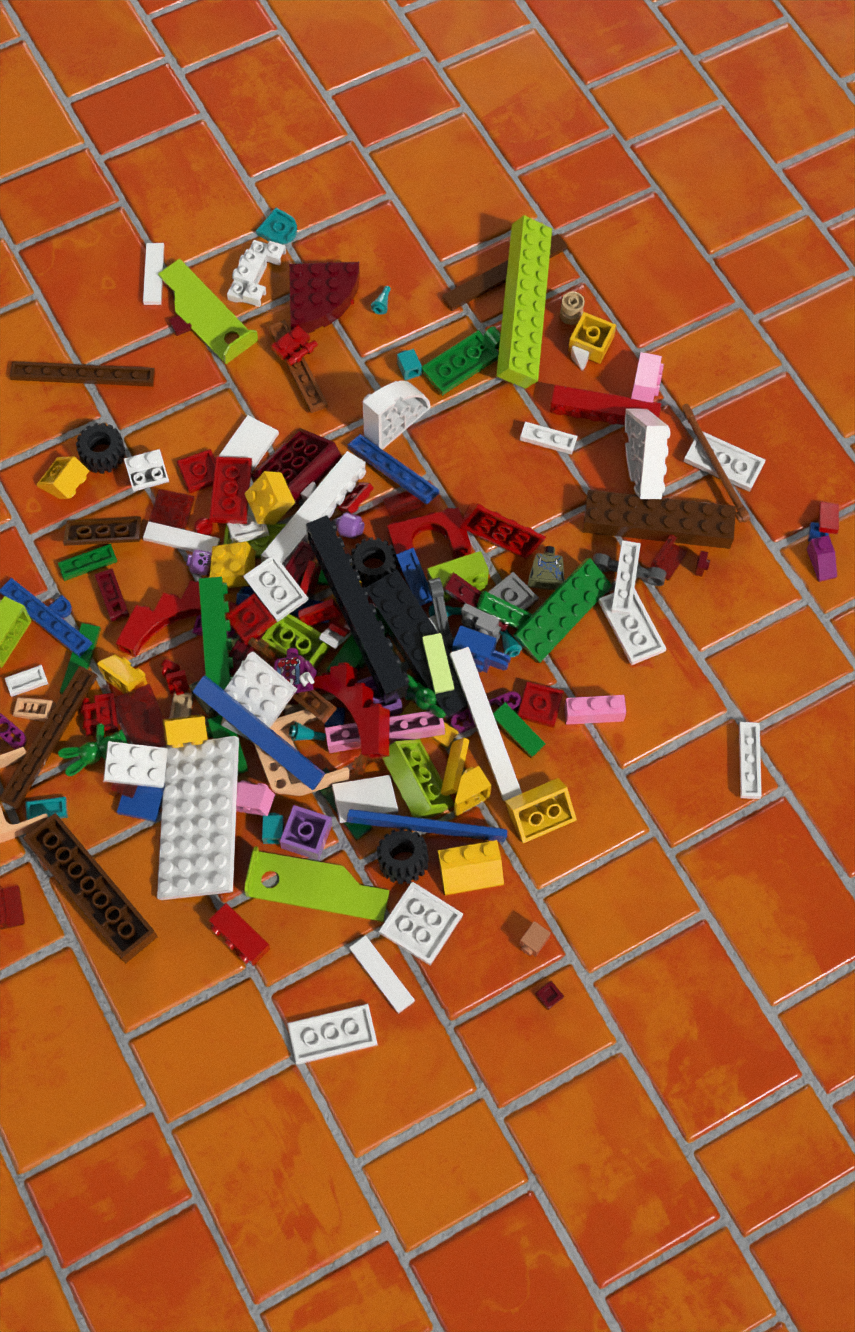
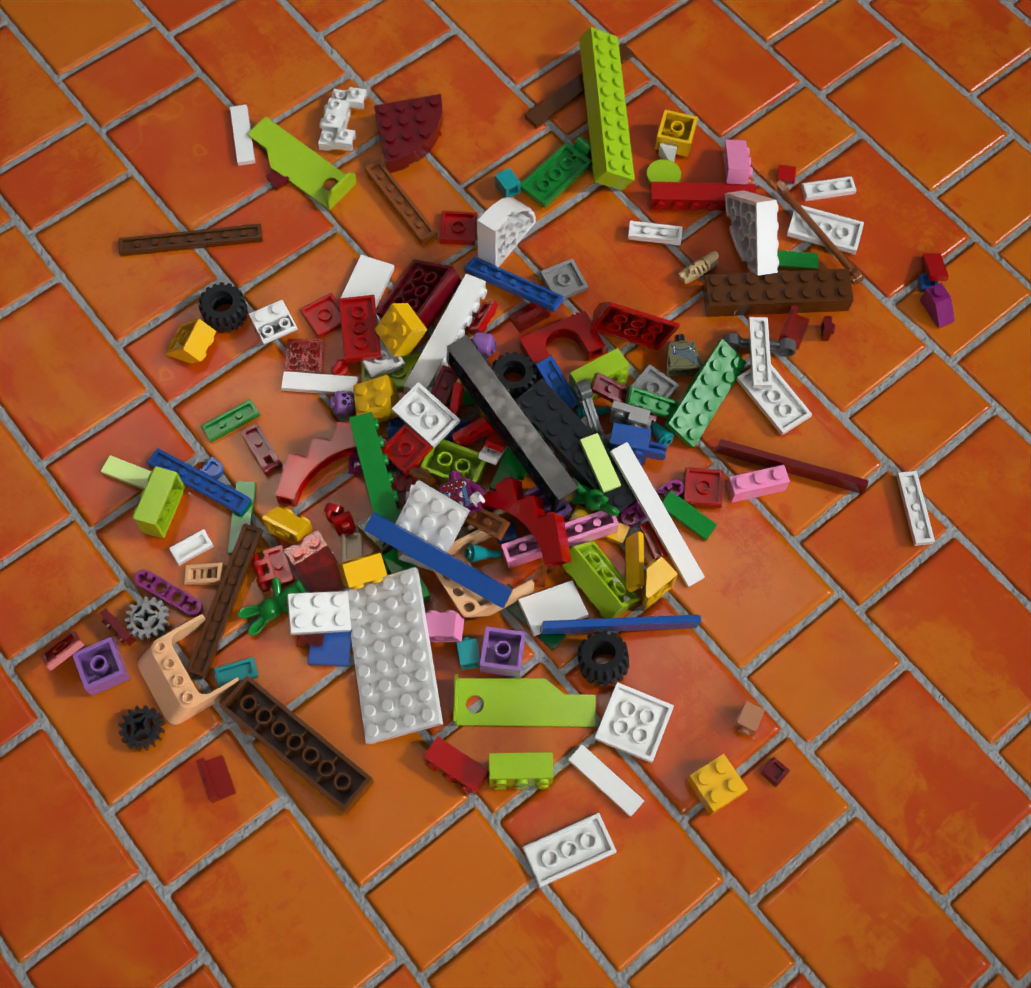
camera: 10 degrees left, 0 degrees up
(102, 531) = (240, 387): reddish brown slope -> none
(278, 227) = (354, 74): teal tile -> none
(291, 342) = (390, 178): red plate -> none
(299, 949) = (521, 770): none -> lime brick
(308, 491) = (434, 320): white slope -> none
(349, 402) = (458, 228): none -> red tile
(380, 304) = (468, 131): teal cone -> none
(446, 472) = (564, 279): none -> light grey plate
(470, 867) = (671, 658): yellow slope -> none
(485, 764) = (650, 545): none -> red tile
(488, 996) = (717, 784): none -> yellow brick
(541, 810) = (727, 590): yellow slope -> none
(571, 376) = (663, 171): none -> lime tile
(572, 307) = (651, 108): tan wheel -> none
(585, 481) = (699, 267): none -> tan hinge
(634, 698) = (792, 466): none -> dark red tile
(686, 488) = (797, 260): none -> green tile
(697, 397) = (786, 174): none -> red tile
(738, 419) = (828, 188): none -> white tile

